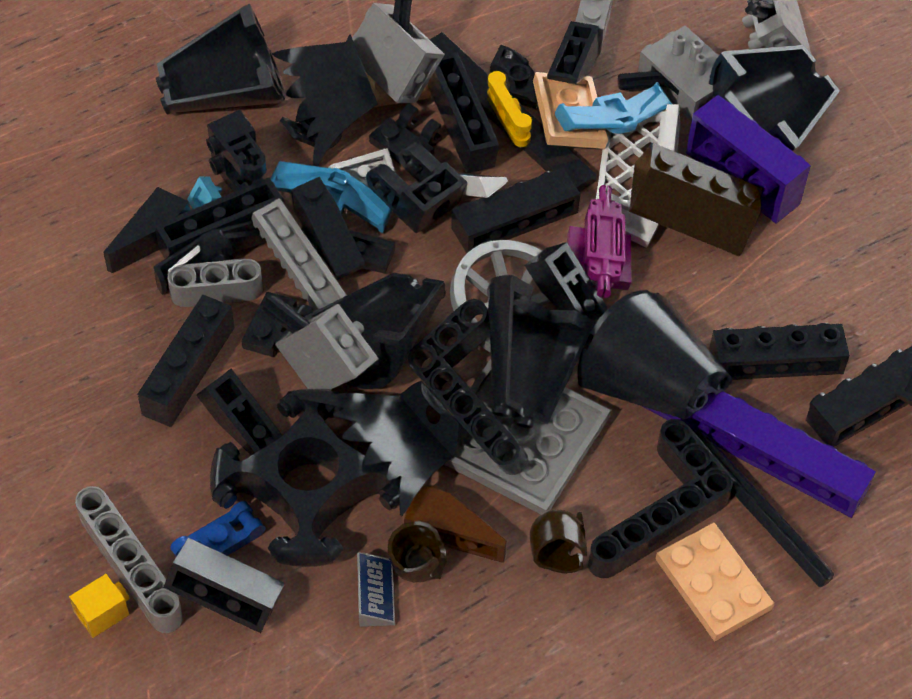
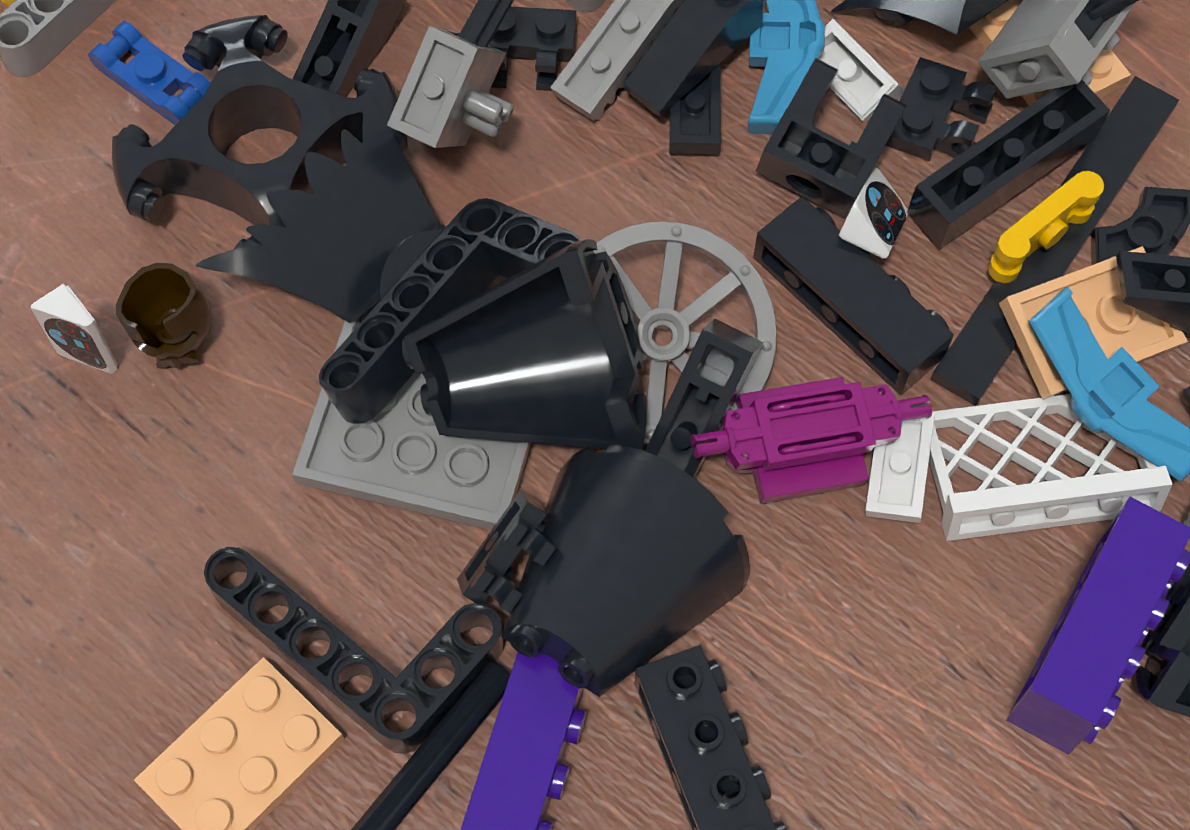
camera: 75 degrees right, 10 degrees up
(223, 585) = (56, 90): black brick -> none
(375, 590) = (101, 277): slope -> none
(393, 320) = (557, 156): black cone -> none
(416, 600) = (73, 329): none -> white slope
(456, 524) = (240, 349): reddish brown slope -> none
(554, 537) = (239, 500): dark brown helmet -> none
(628, 408) = (490, 567): none -> black plate
(694, 199) = (960, 554): dark brown slope -> none

